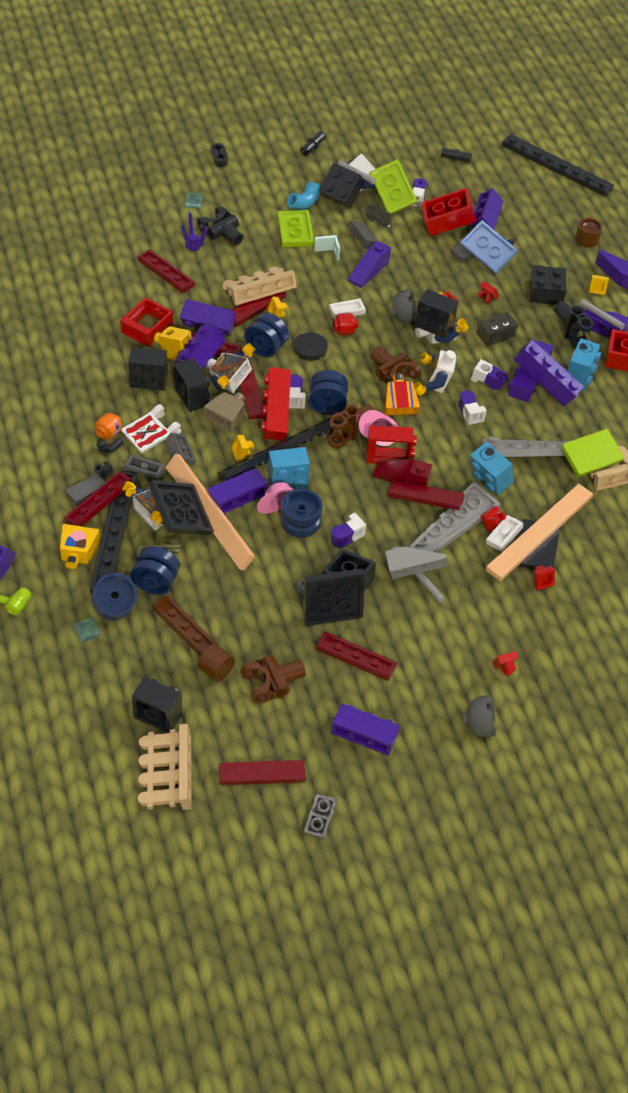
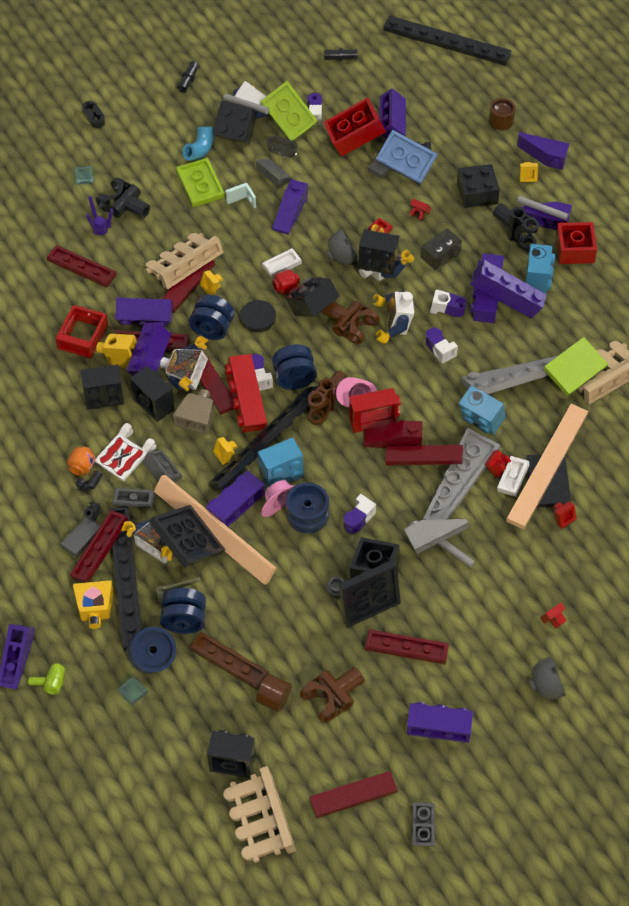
camera: 10 degrees left, 5 degrees up
(364, 338) = (312, 296): none -> black brick
(400, 397) = (367, 352): torso -> none

